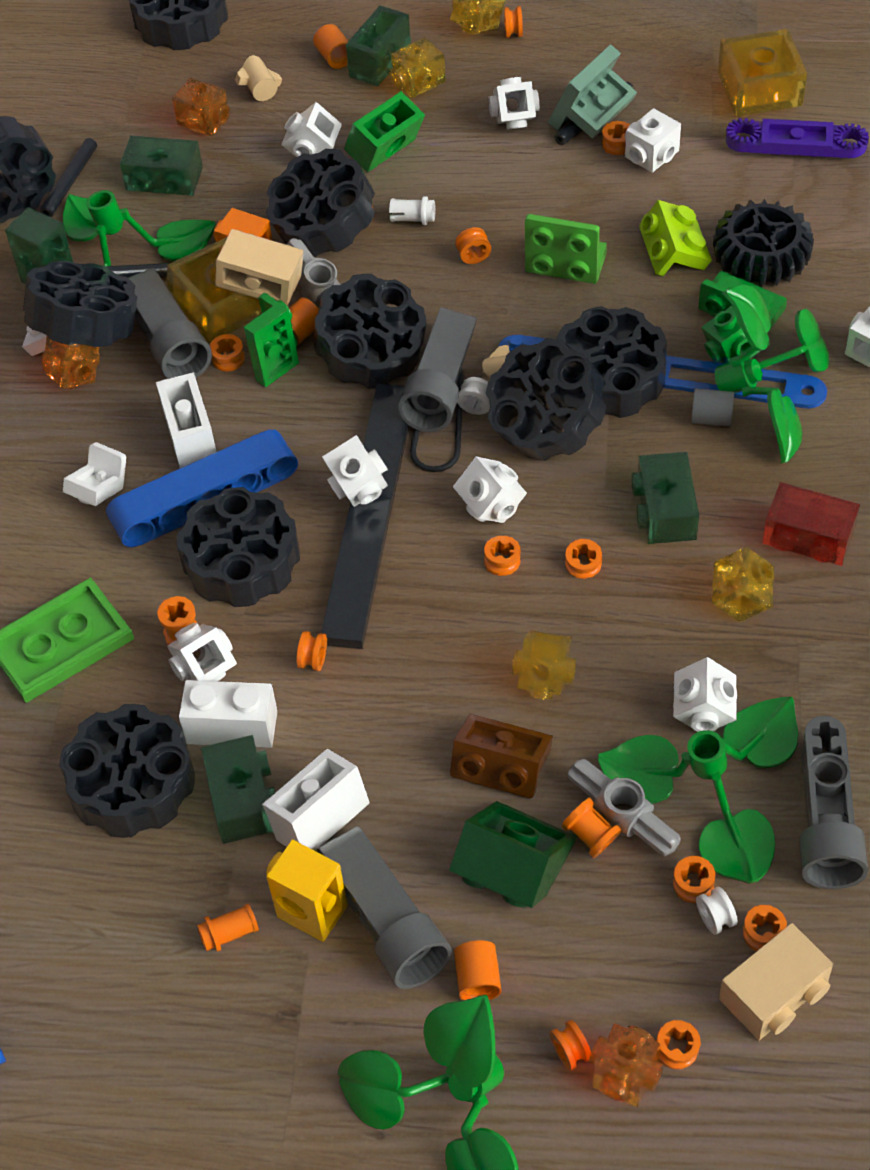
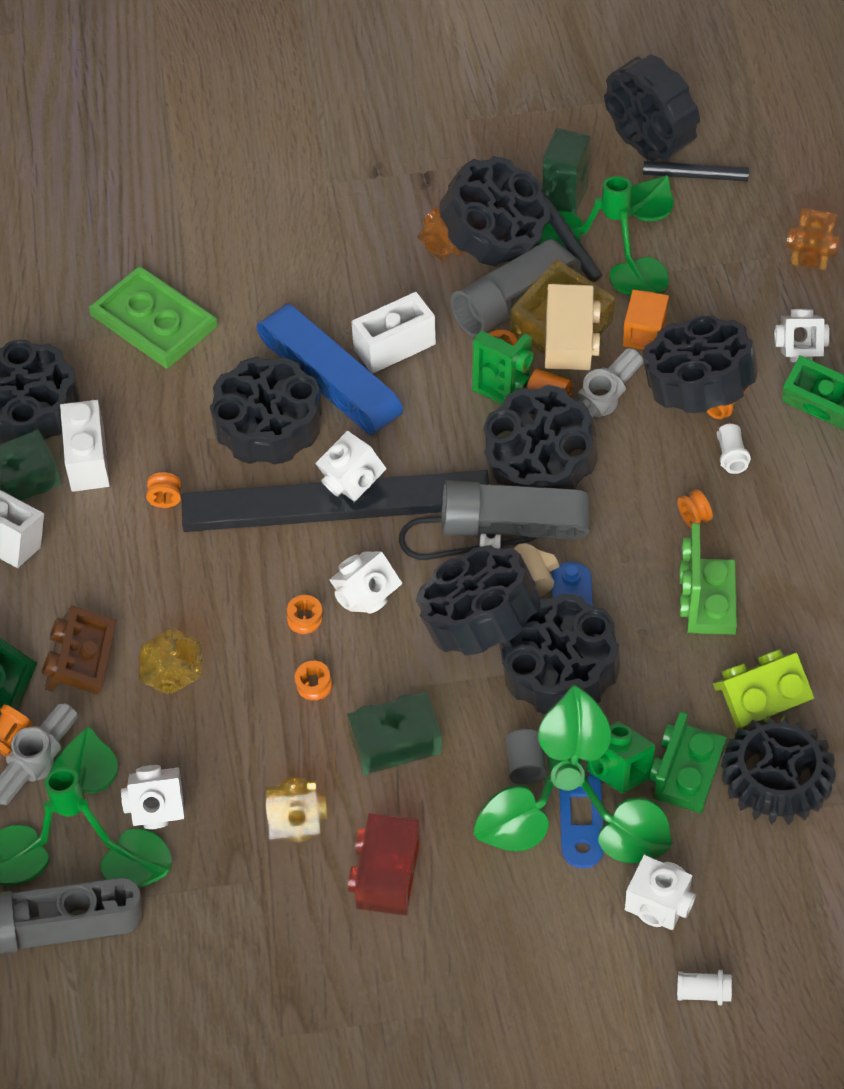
camera: 75 degrees right, 0 degrees up
(99, 478) = (320, 291): white bracket -> none
(161, 165) = (725, 233): clear green brick -> none
(174, 615) = (171, 388): orange bush -> none
(214, 655) = (137, 409): white brick -> none

